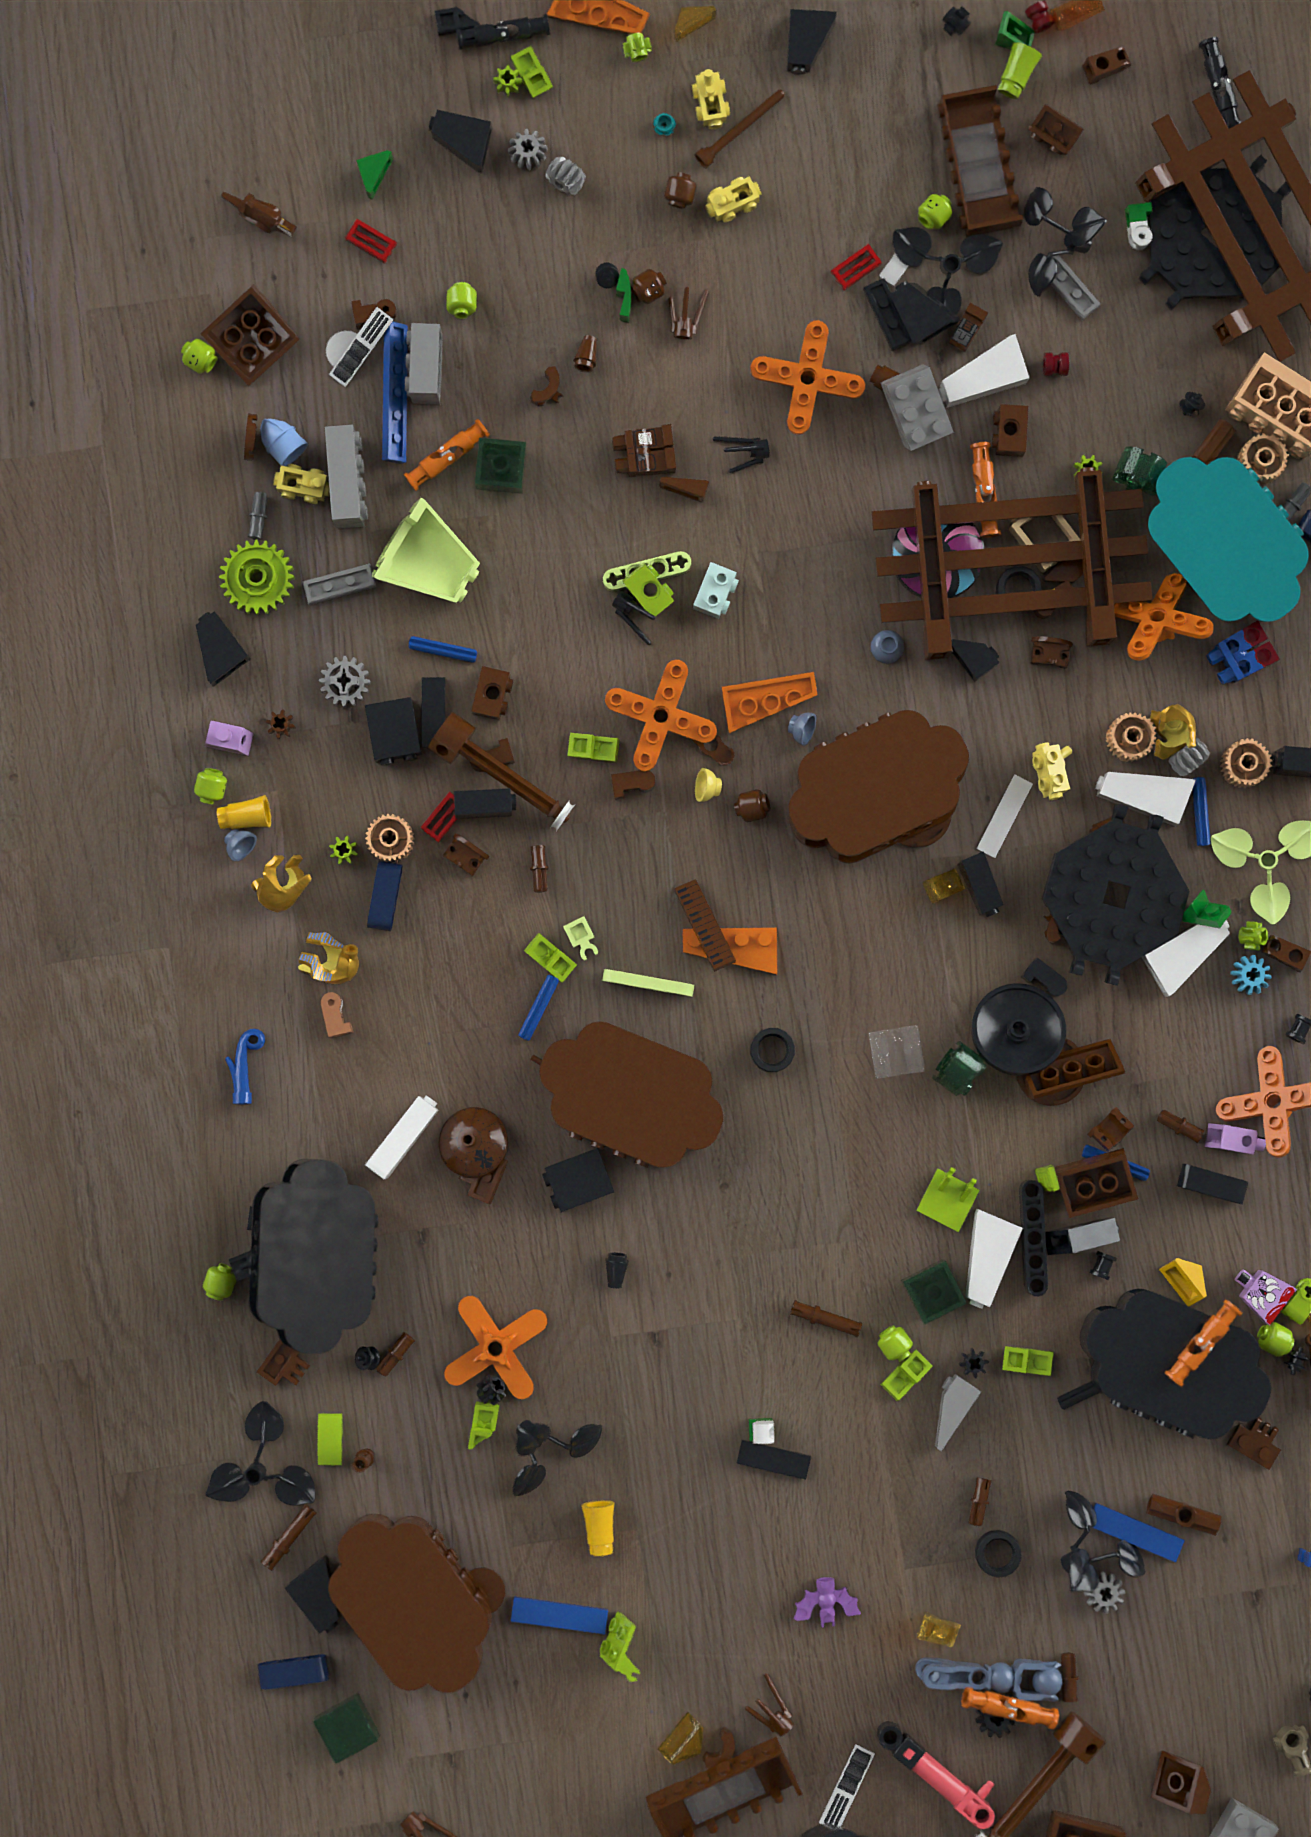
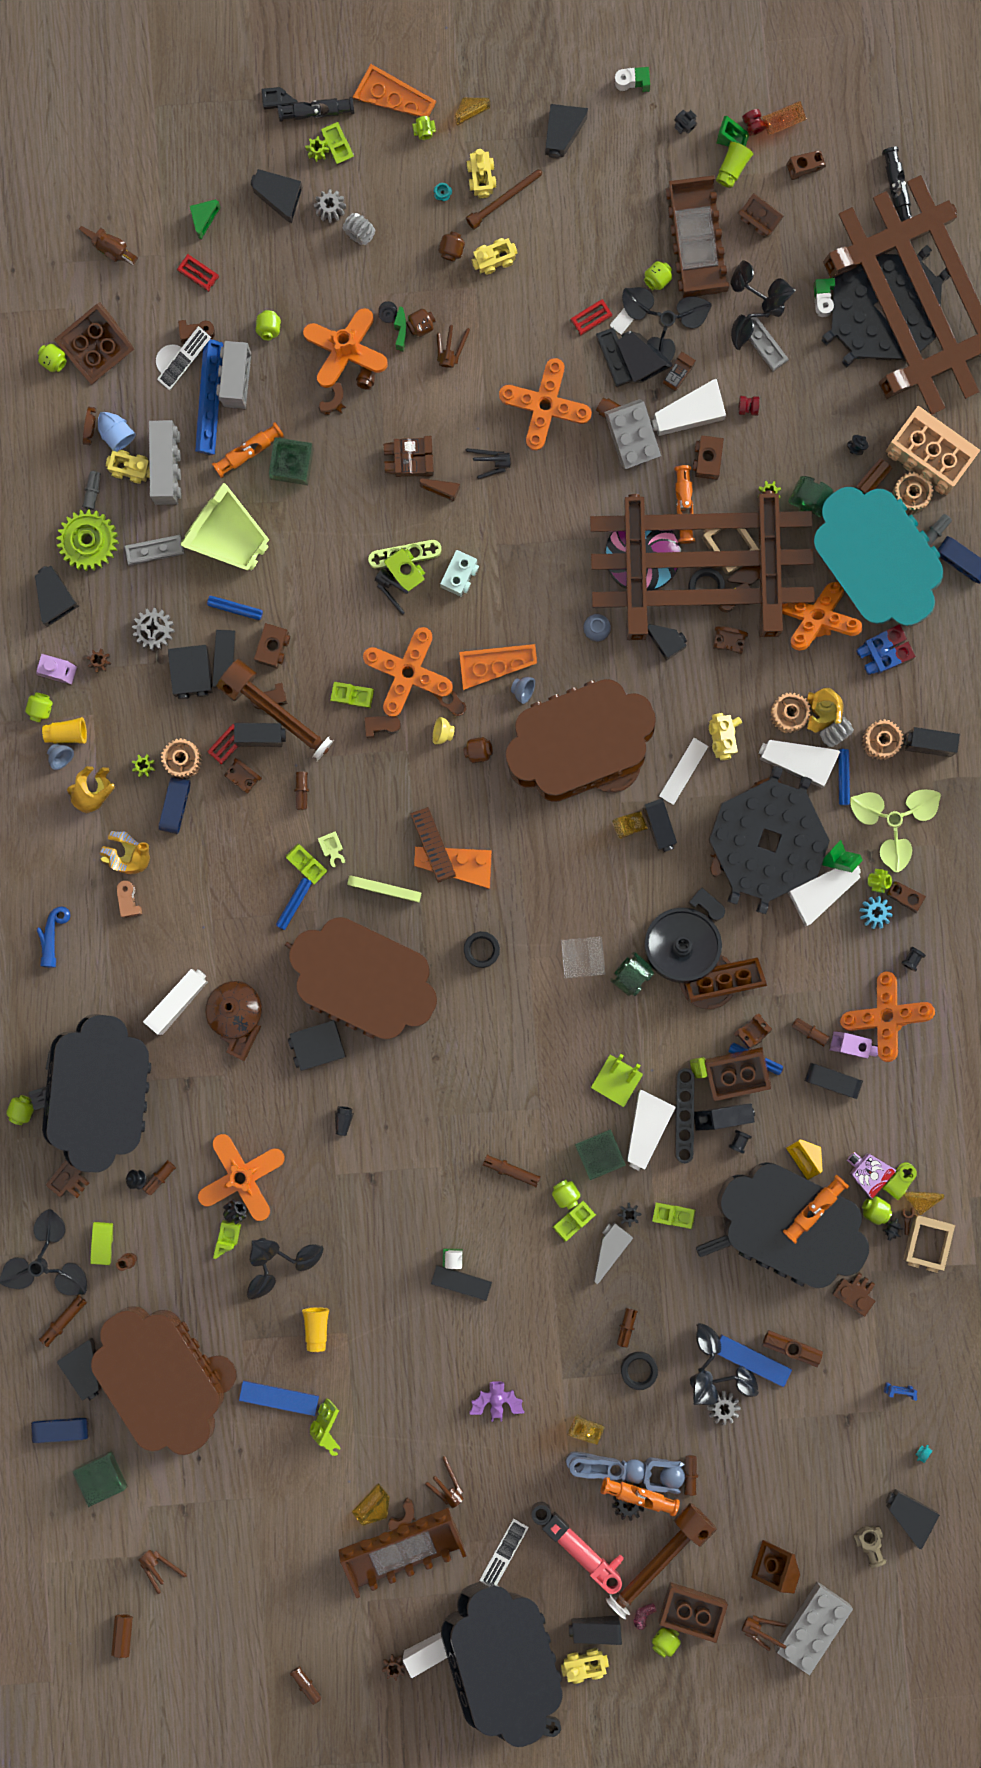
camera: 10 degrees right, 0 degrees up
(556, 329) = (343, 353): none -> orange piece

